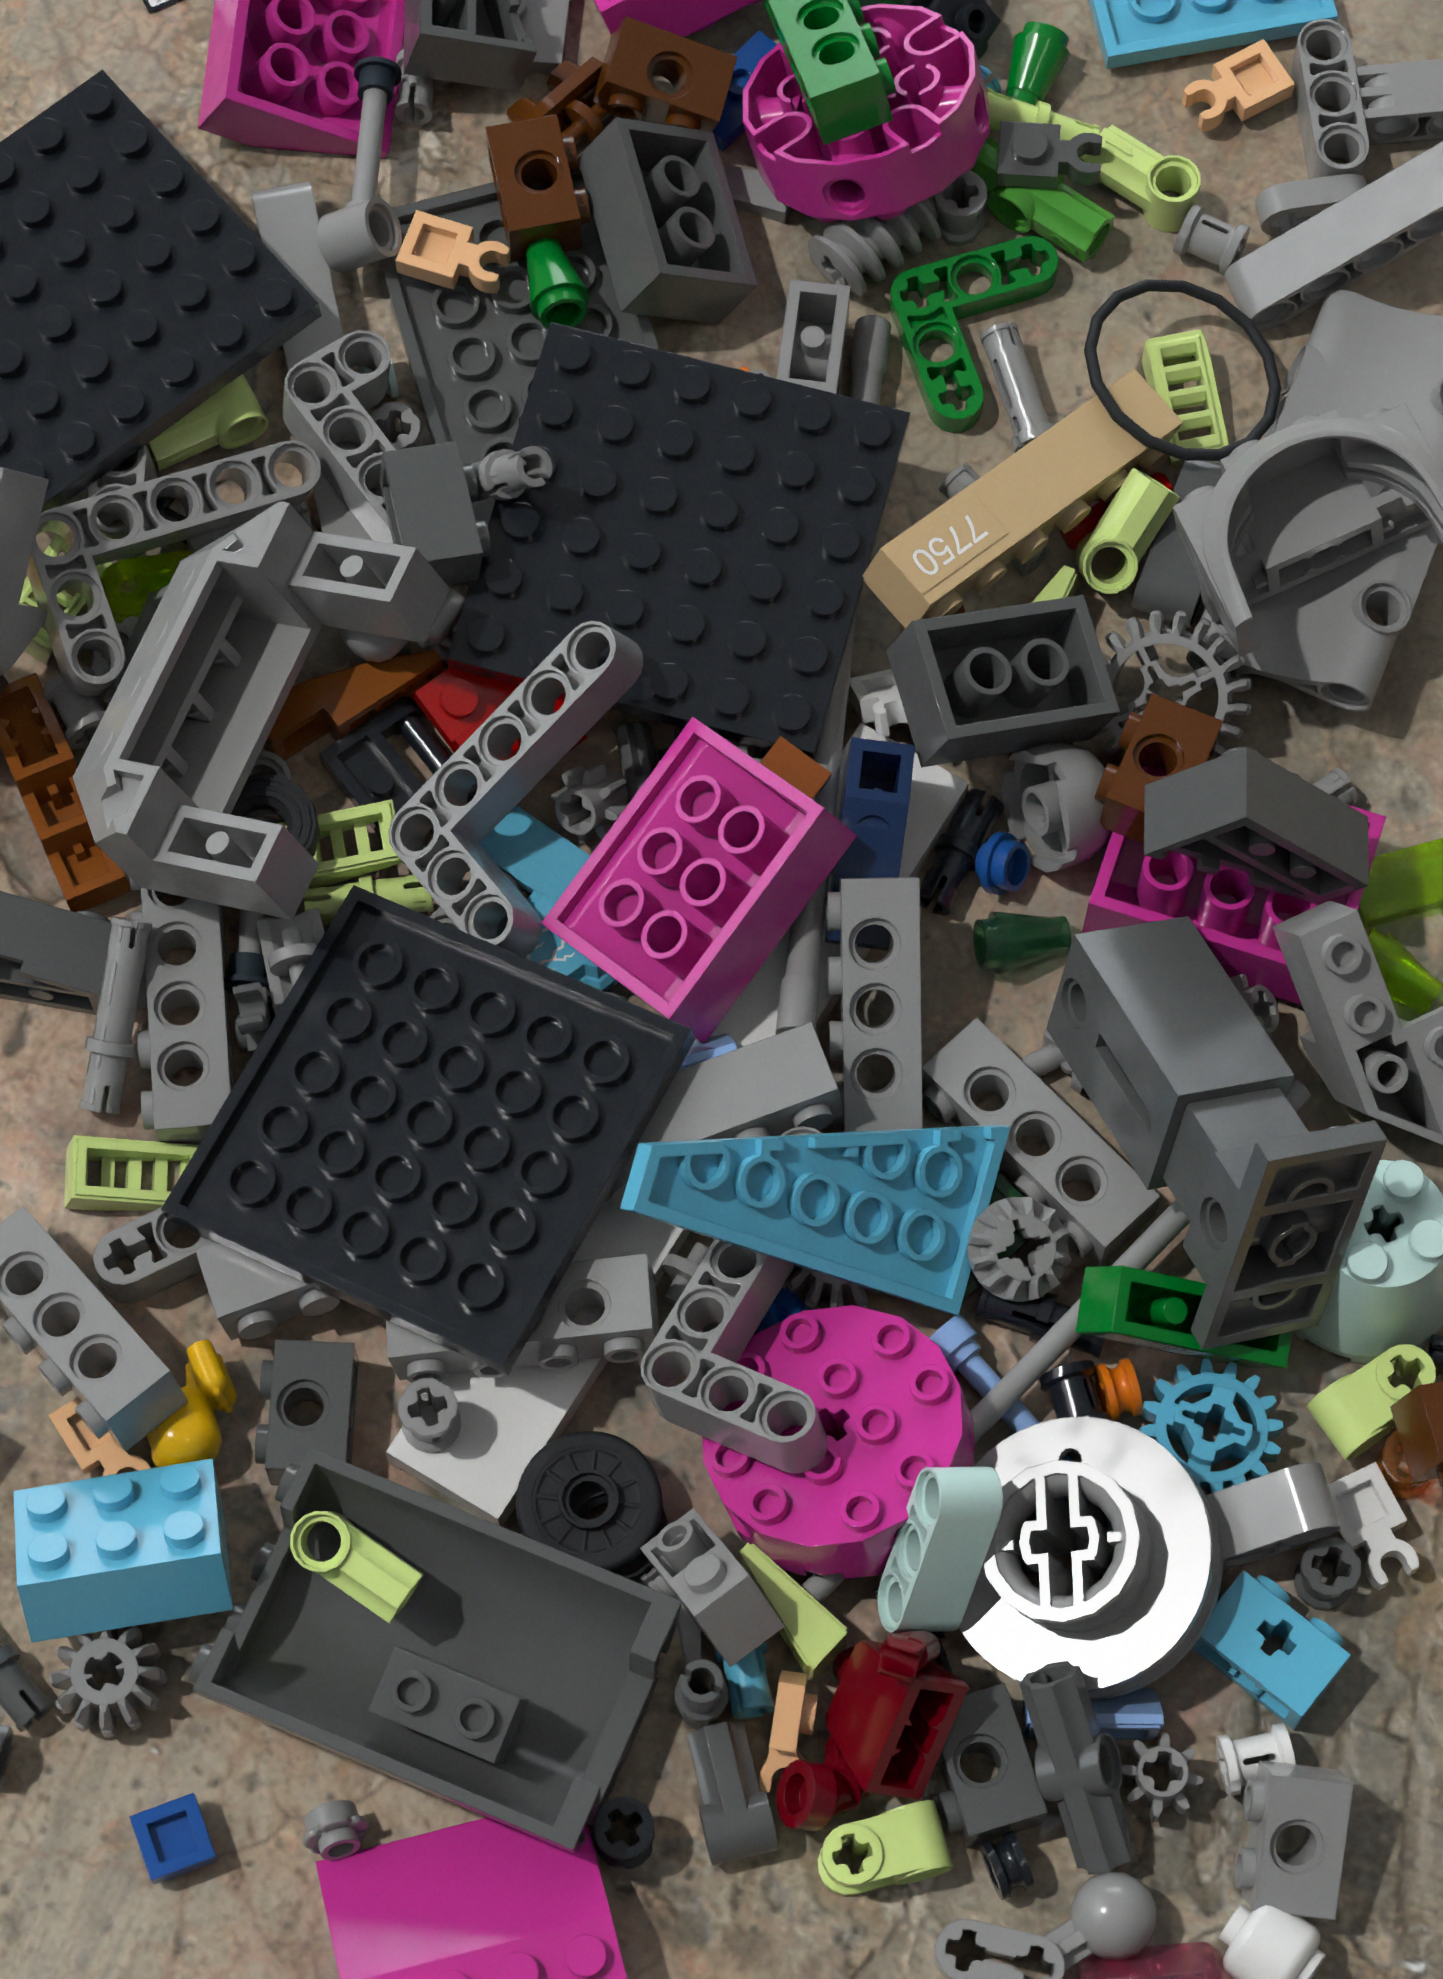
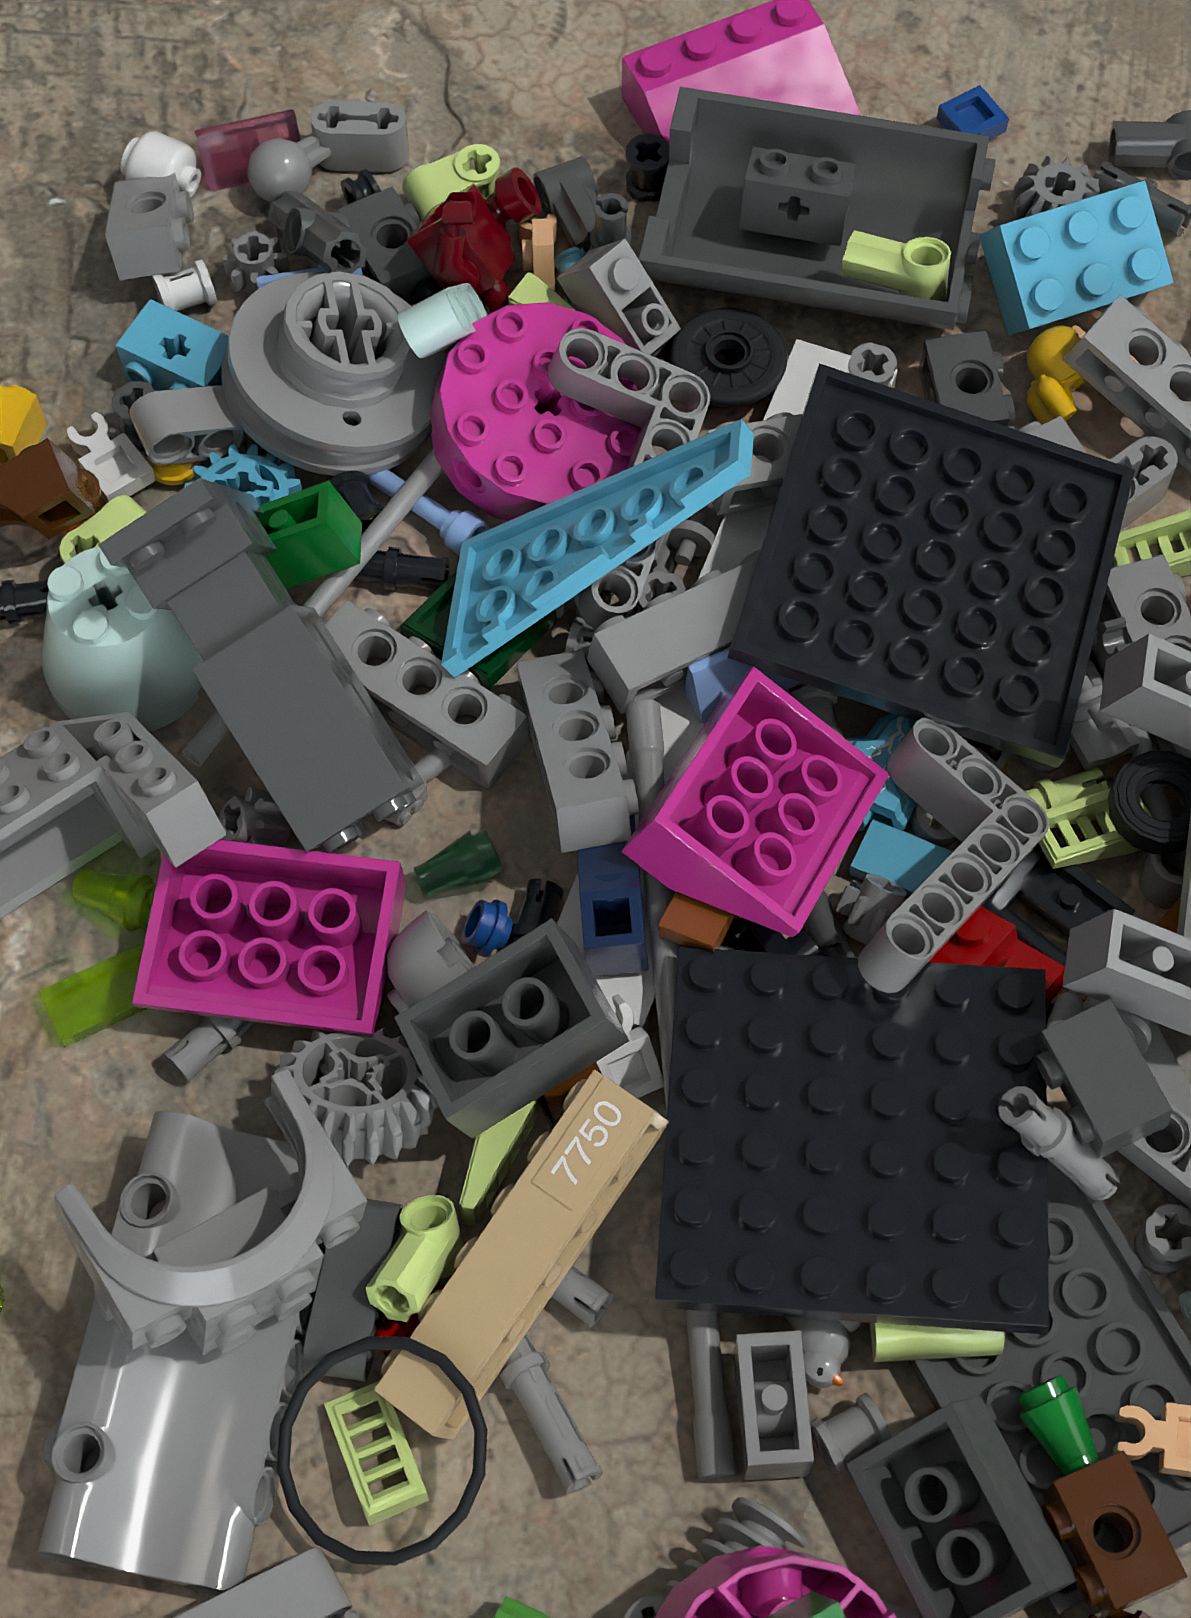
camera: 170 degrees right, 5 degrees down
(742, 332) = (850, 1433): none -> light grey bush
(940, 317) = (648, 1496): green beam -> none
(994, 1232) = (410, 608): light grey gear -> none
(1162, 737) = (346, 944): reddish brown brick -> none
(1261, 822) = (247, 902): dark grey wedge -> none

